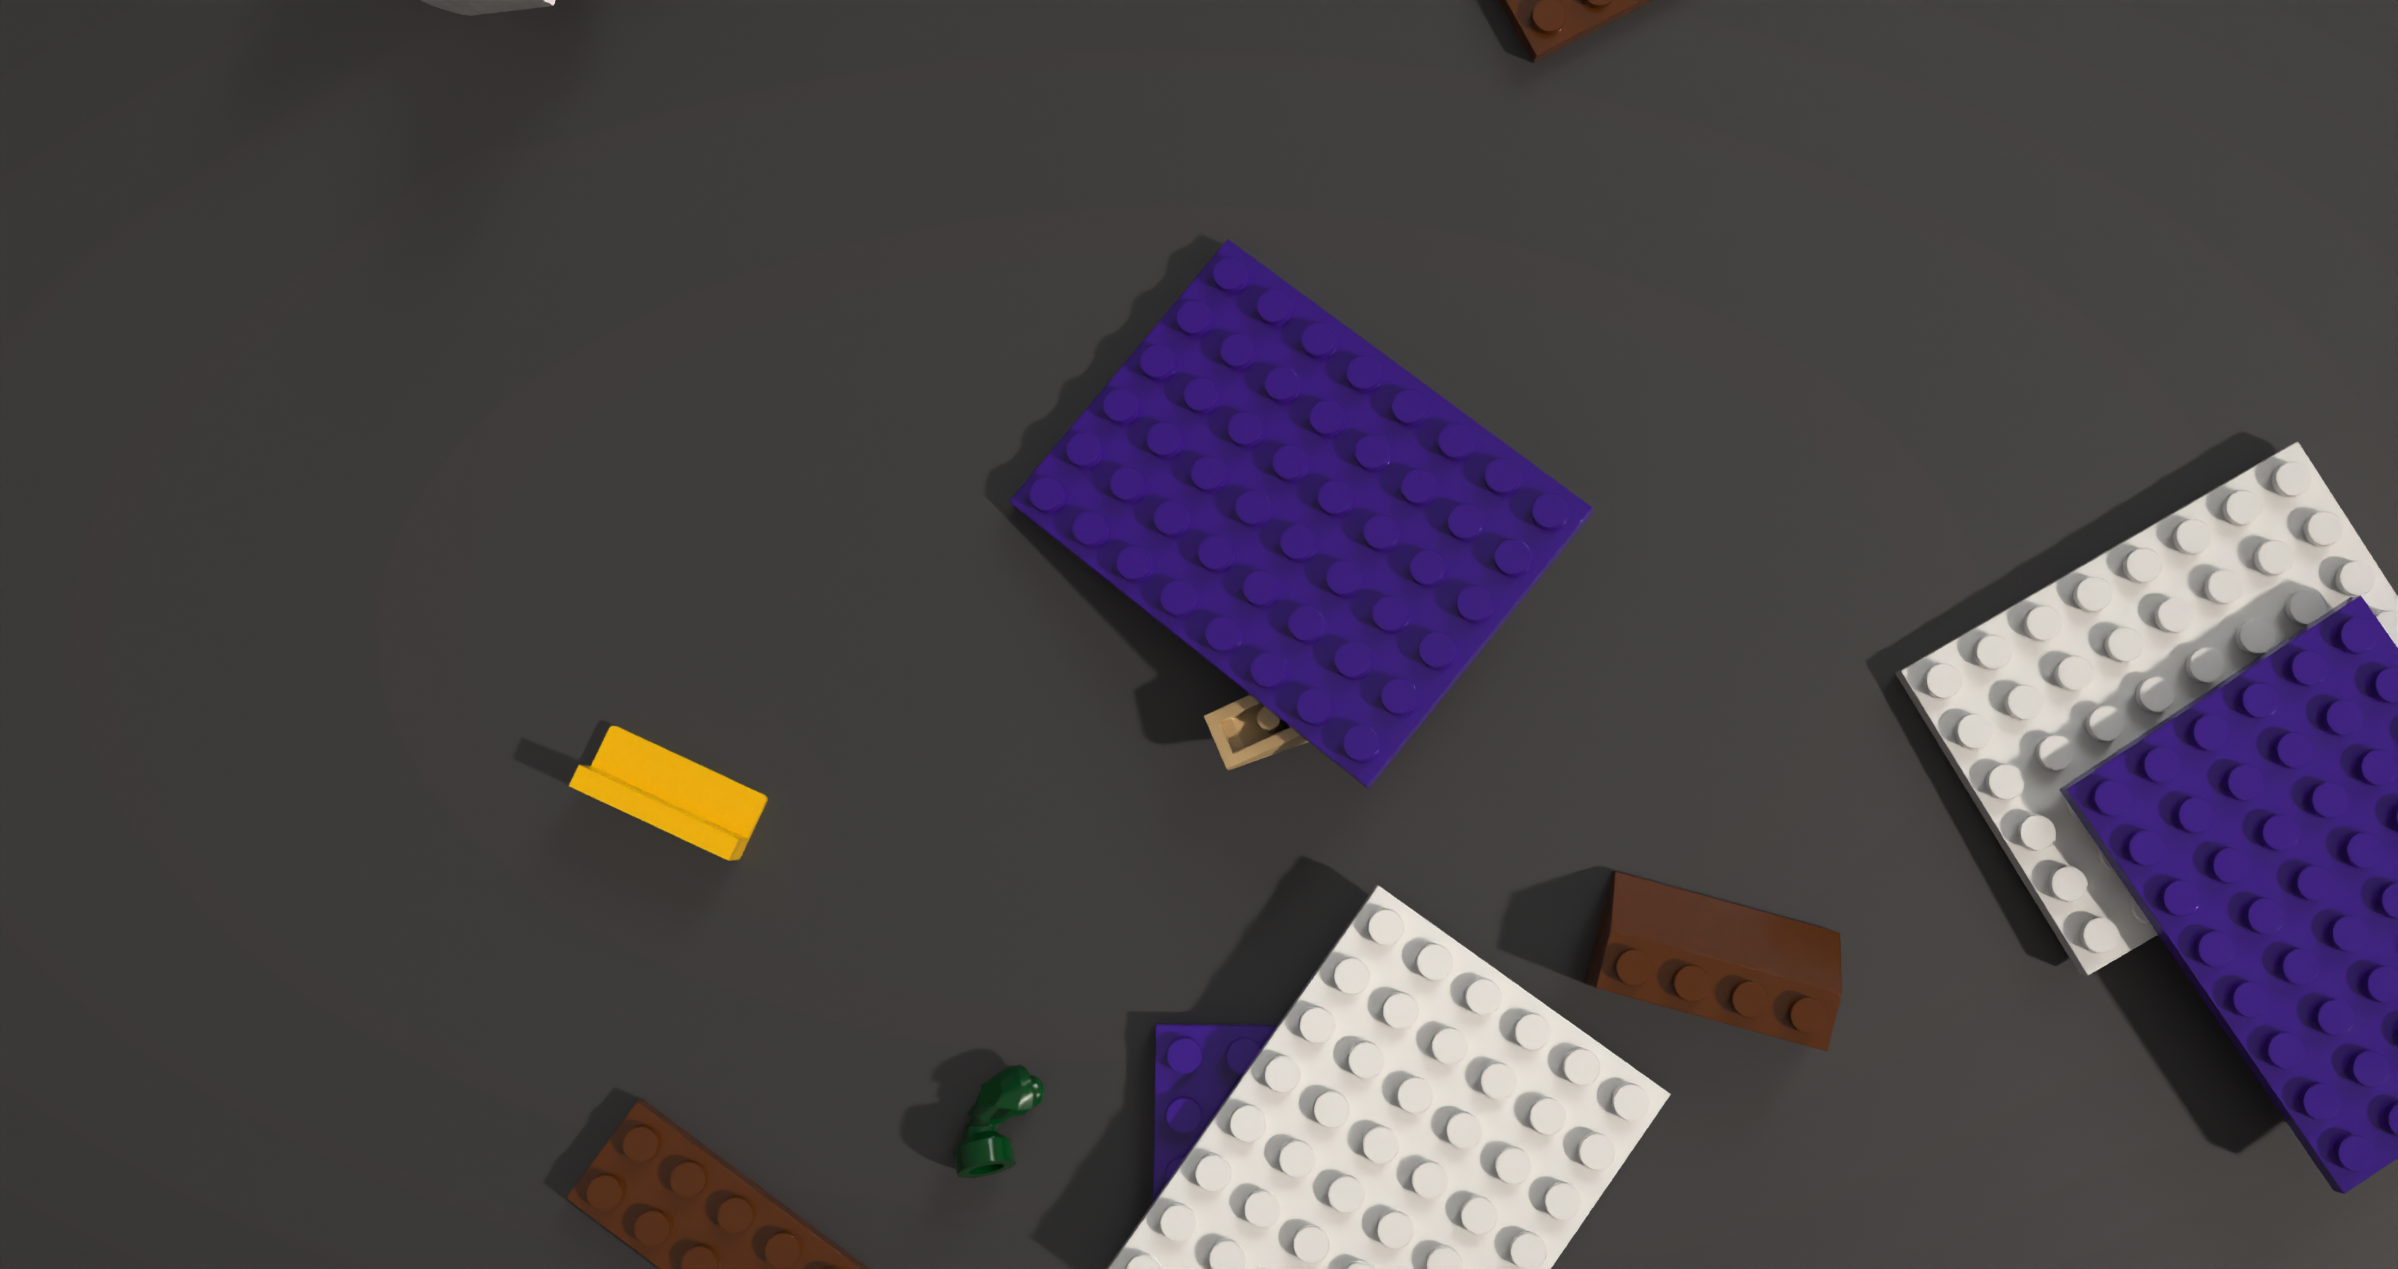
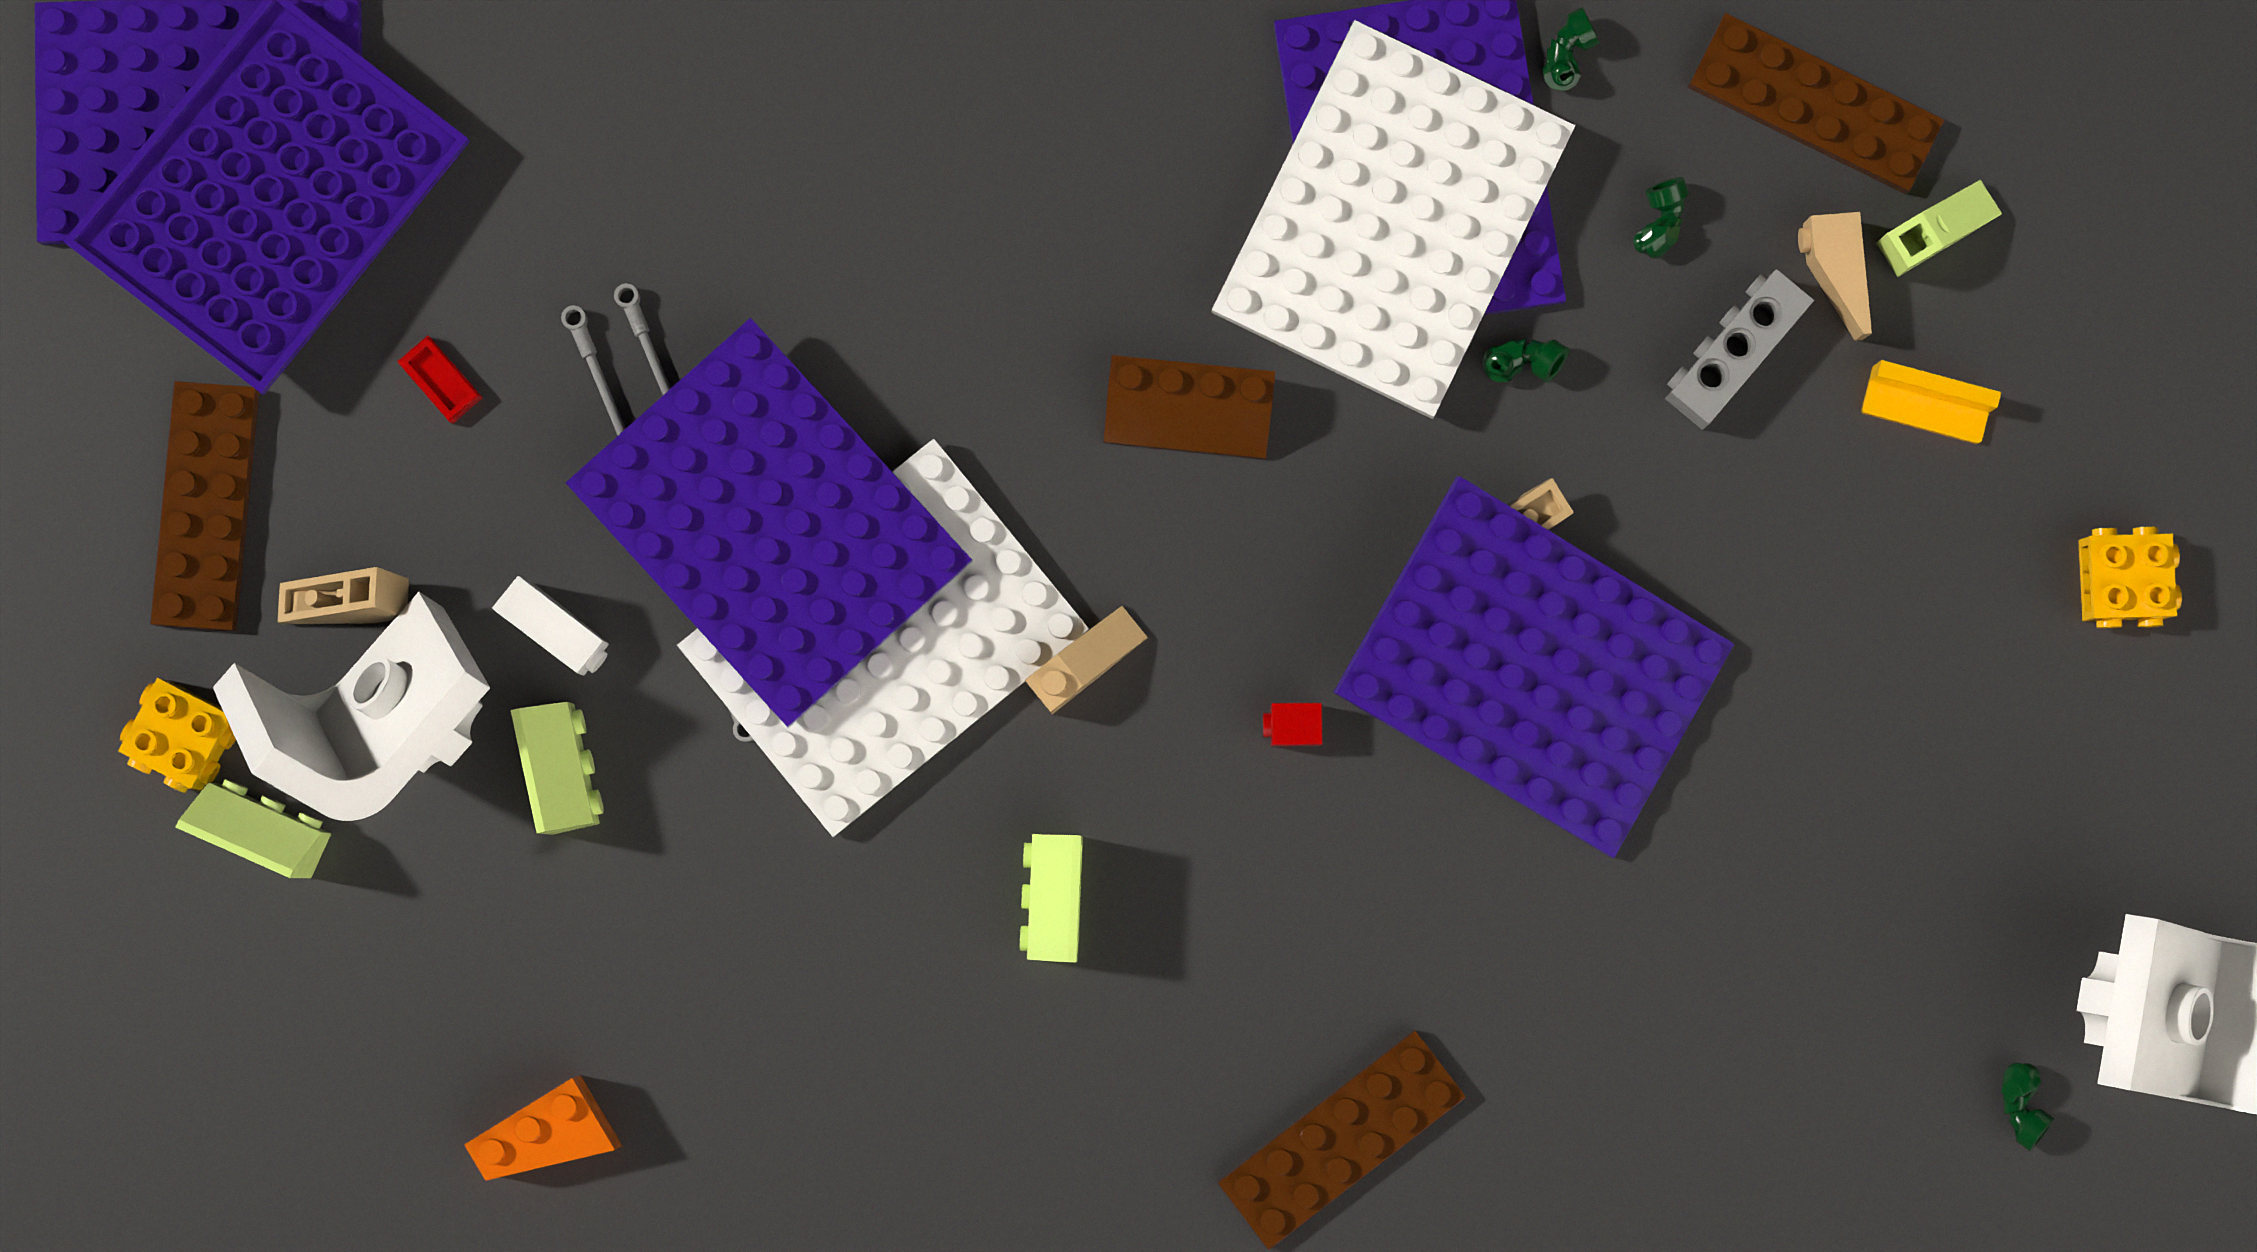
camera: 175 degrees right, 0 degrees up
(445, 500) = (2129, 577): none -> yellow brick
(606, 1040) = (1938, 227): none -> yellowish green slope
(760, 1016) = (1838, 263): none -> tan slope
(846, 963) = (1783, 302): none -> light grey brick
(1252, 952) = (1506, 361): none -> dark green arm
(1638, 490) = (1293, 724): none -> red brick
(1915, 626) = (1085, 659): none -> tan slope
(2004, 305) = (1052, 897): none -> yellowish green slope

